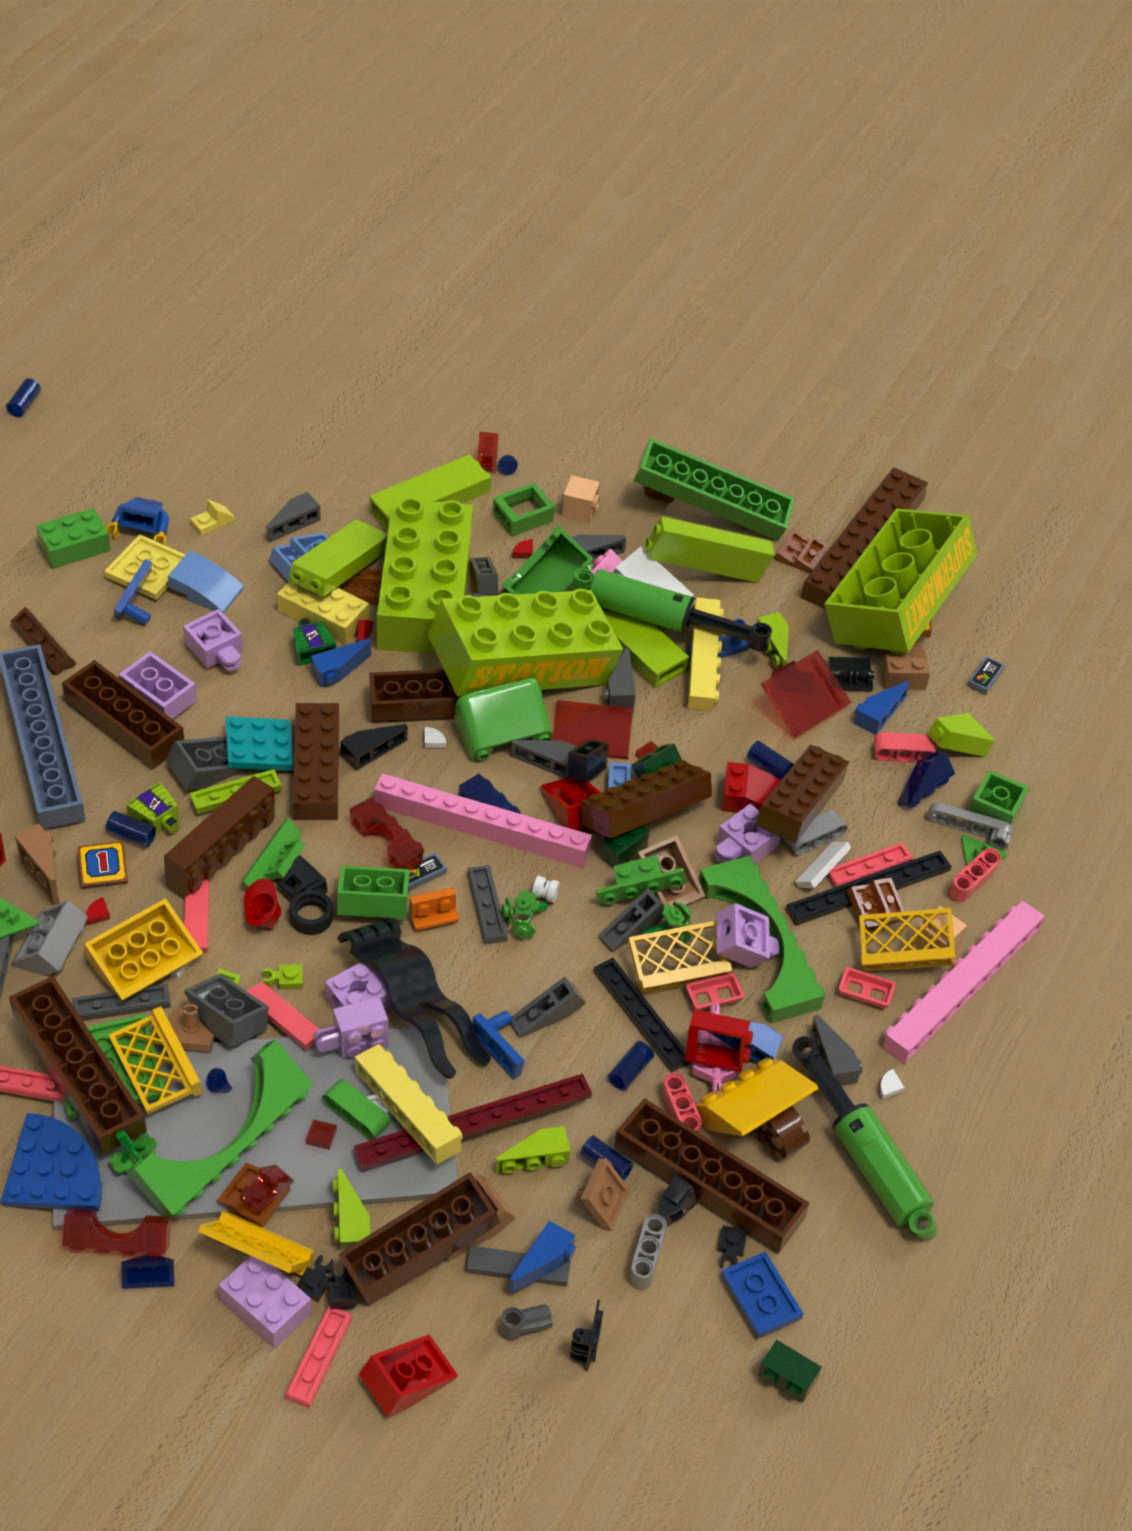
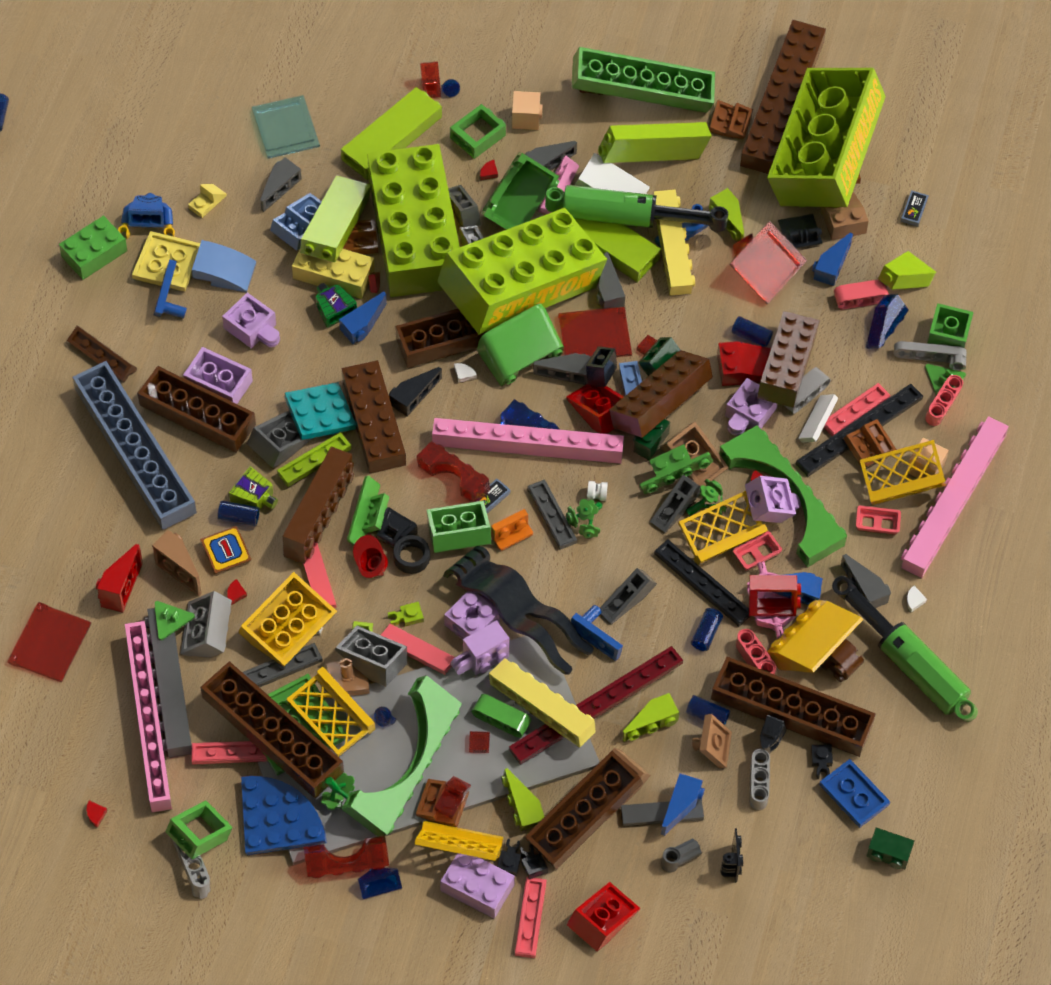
camera: 10 degrees left, 10 degrees up
(320, 468) = (285, 126): none -> clear light blue piece

